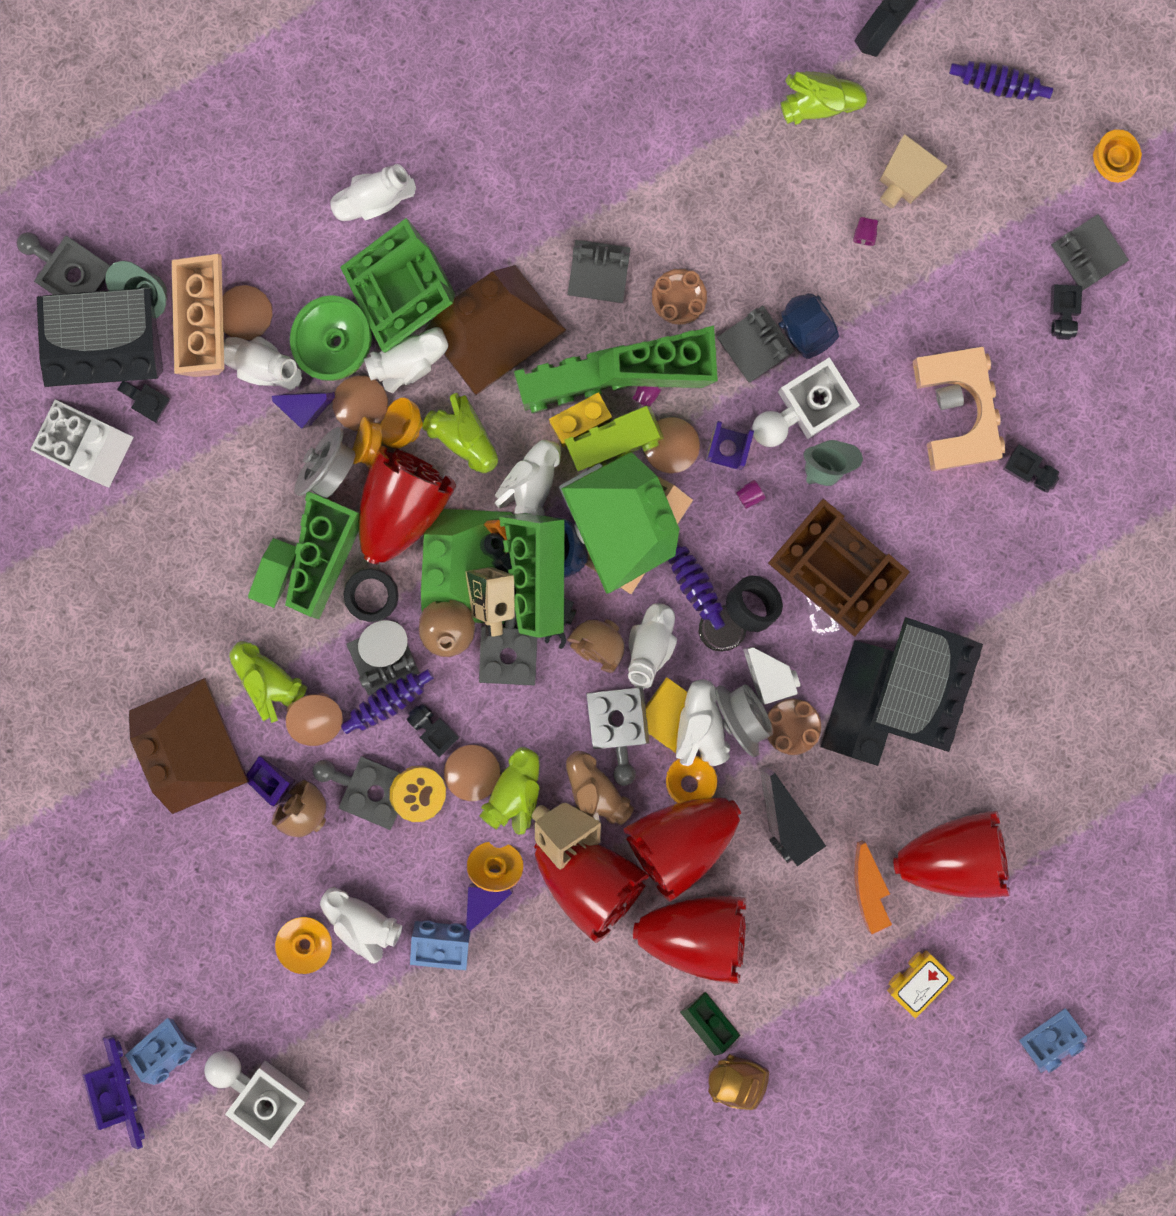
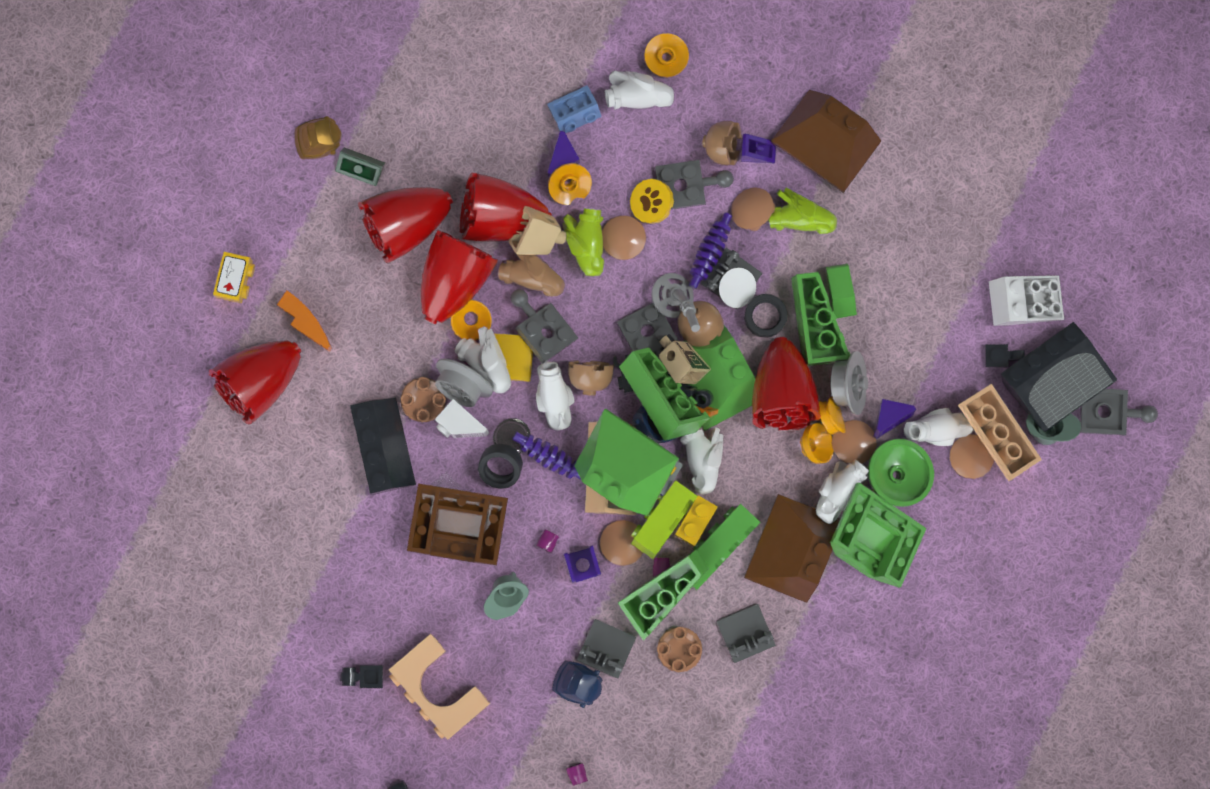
camera: 155 degrees right, 5 degrees down
(373, 194) = (934, 590): white animal -> none
(438, 736) = (662, 247): black plate -> none
(455, 674) = (675, 296): none -> light grey dish
(462, 434) = (770, 462): lime animal -> none
(772, 427) = (560, 595): white brick -> none
(791, 830) = (384, 326): black slope -> none
(926, 684) = (349, 480): slope -> none
(949, 397) = (449, 692): light grey hose -> none
(1054, 1041) = (118, 293): medium blue bracket -> none

